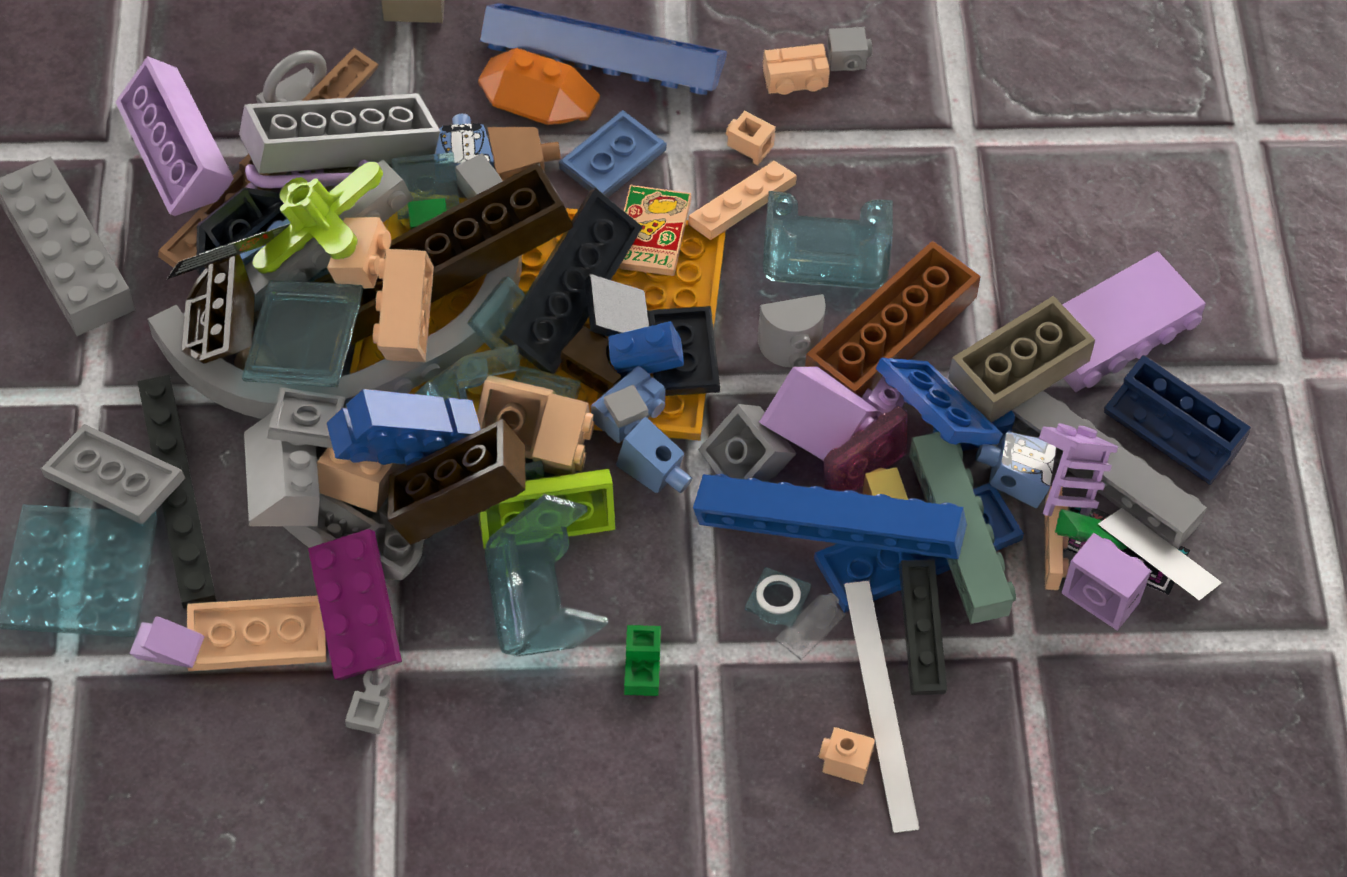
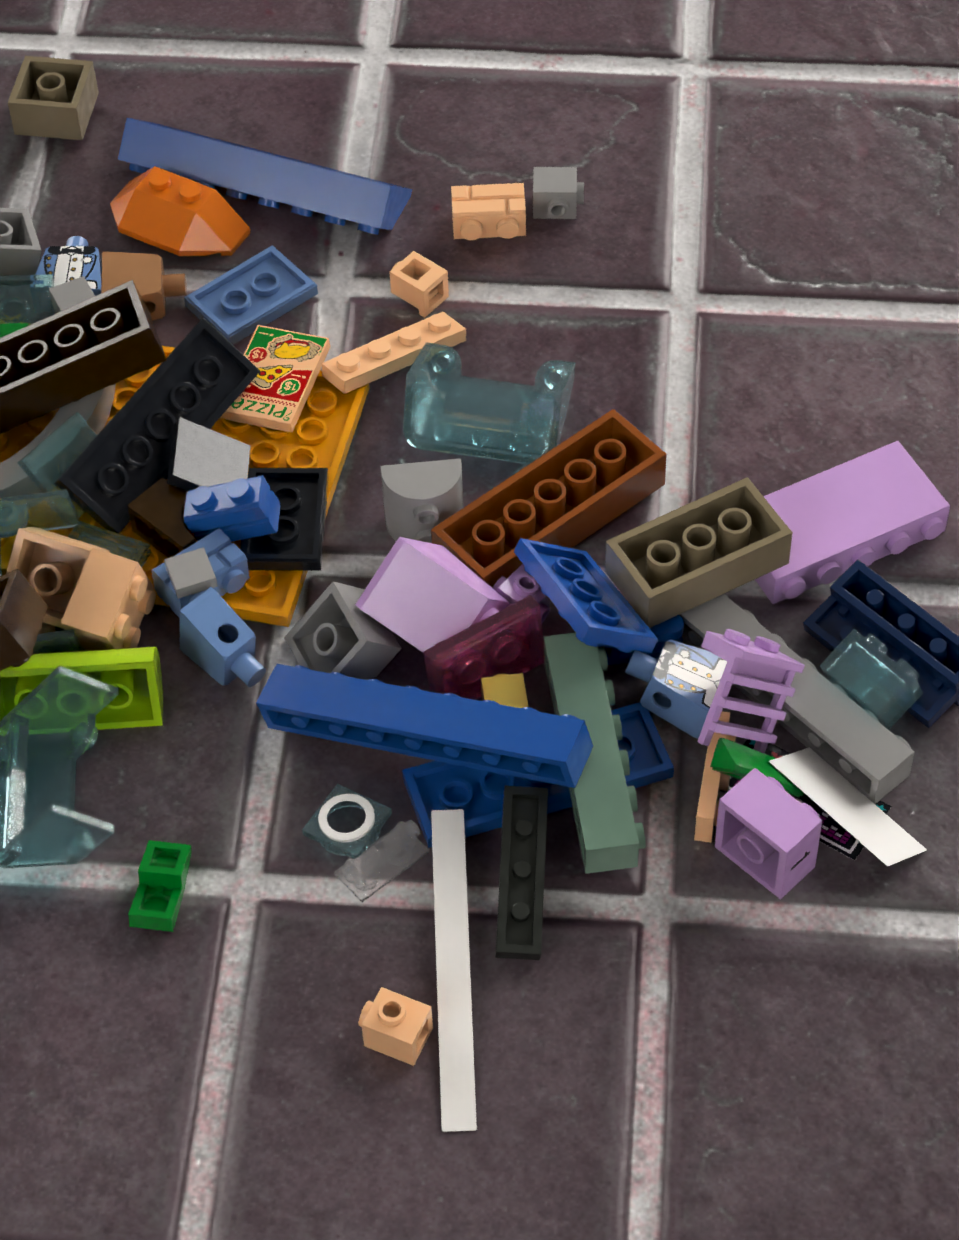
camera: 10 degrees right, 5 degrees down
(1166, 449) = (873, 677): none -> clear light blue brick

